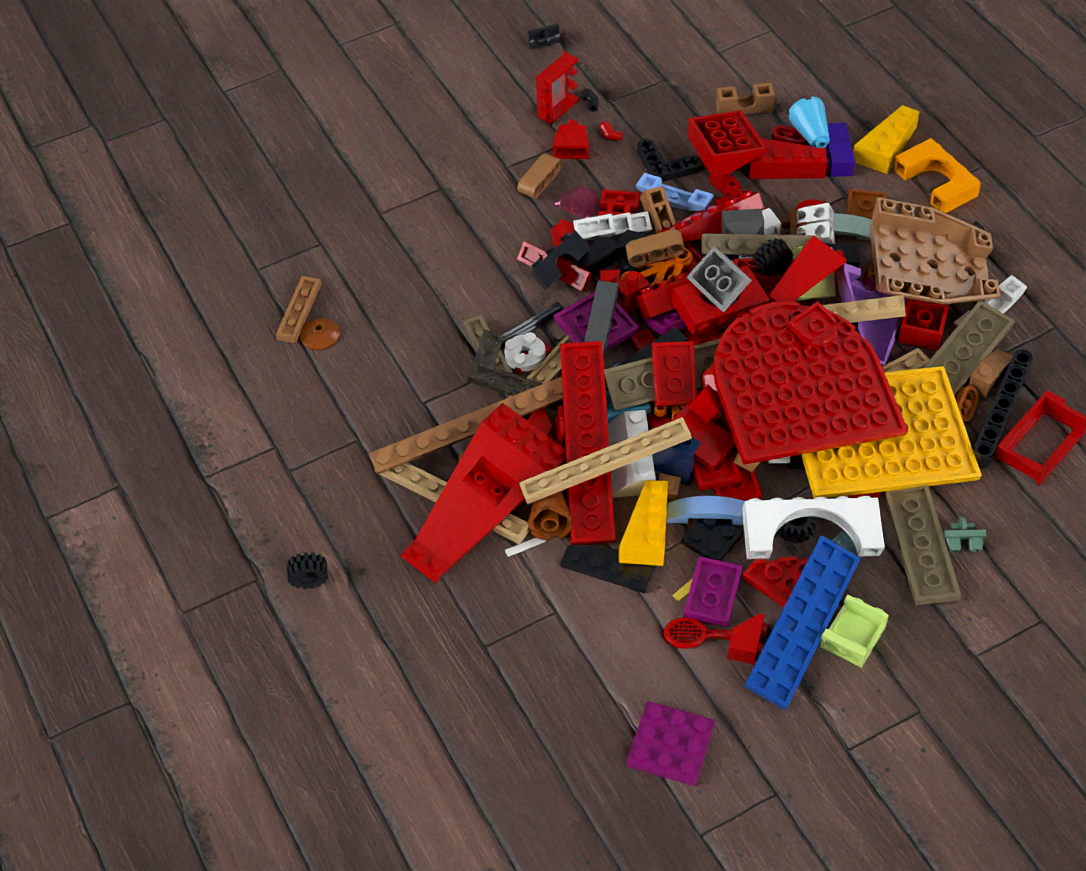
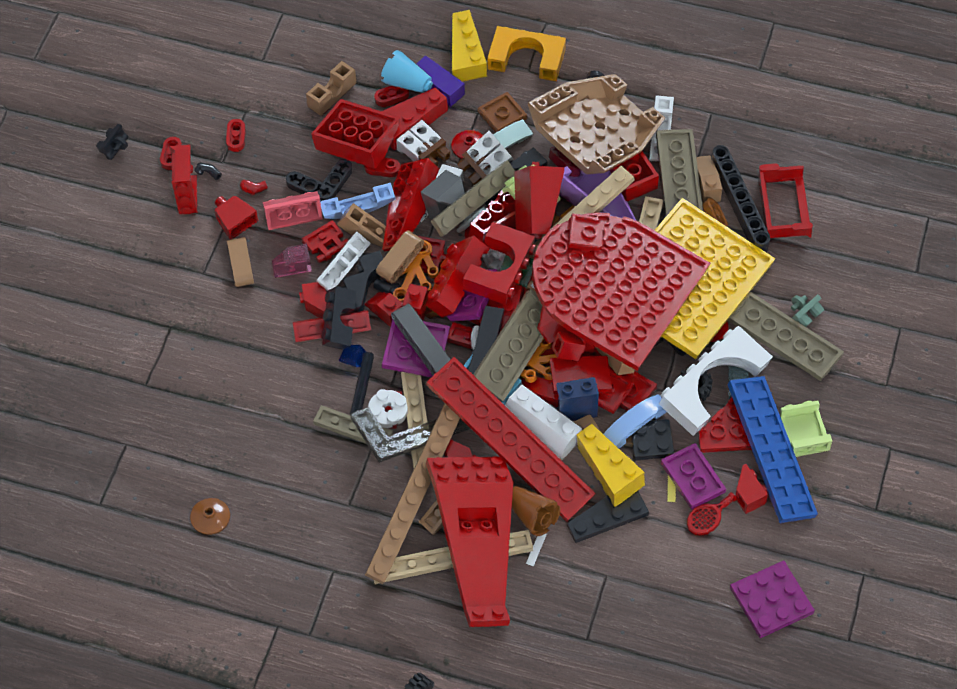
camera: 45 degrees left, 5 degrees up
(298, 309) = (174, 510): medium nougat plate -> none
(547, 298) = (352, 355): none -> clear blue slope
(558, 430) = (477, 444): red piece -> none
(583, 68) = (166, 156): none -> red plate
(605, 460) = (547, 442): tan plate -> none
(616, 164) = (292, 210): none -> coral slope
(637, 88) = (235, 137): none -> red plate
(674, 373) = (521, 342): red tile -> none
(719, 278) = (494, 247): light grey slope -> none
(773, 189) = (423, 144): none -> white hips
(773, 257) = (501, 201): black tyre -> none

